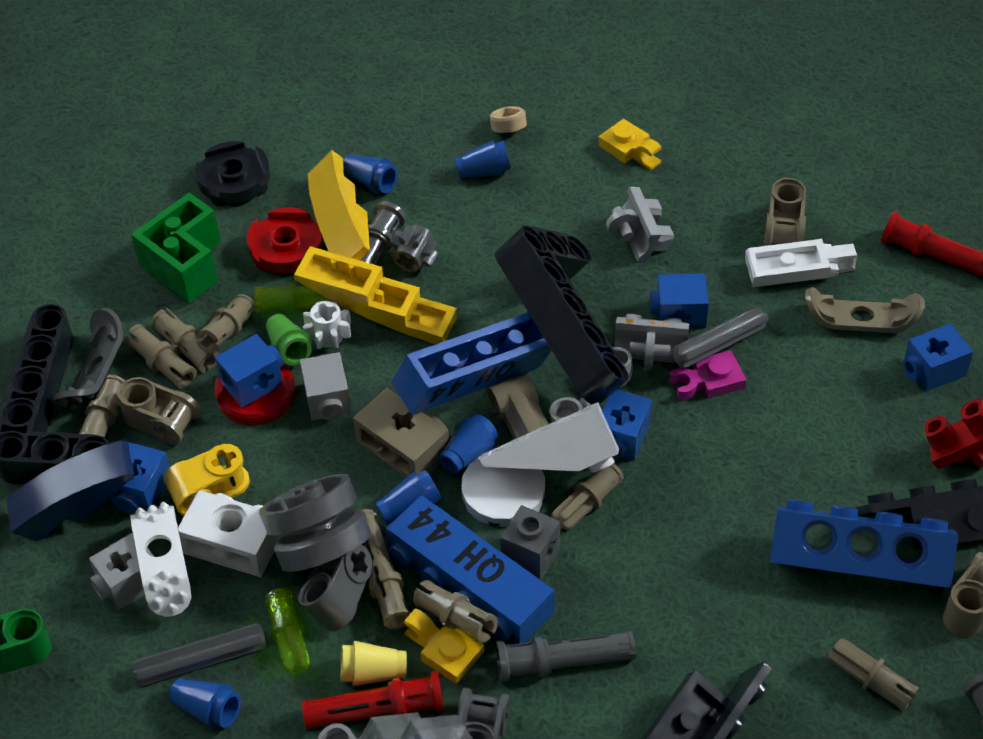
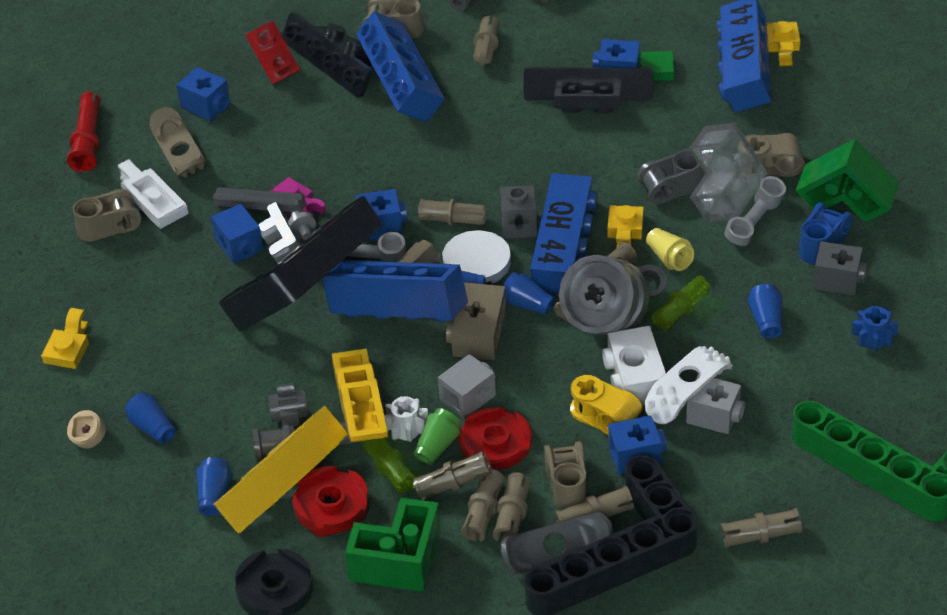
camera: 120 degrees left, 5 degrees down
(69, 490) = (686, 457): dark blue slope -> none
(198, 654) = (736, 338): dark grey axle -> none
(249, 370) = (493, 422): blue brick -> none
(317, 712) = (684, 225): red pin -> none
(455, 611) = (604, 214): dark tan pin -> none
(542, 656) = (605, 180): dark grey pin -> none
(564, 445) = (437, 220): white slope -> none
(638, 225) = (167, 290): light grey hips -> none

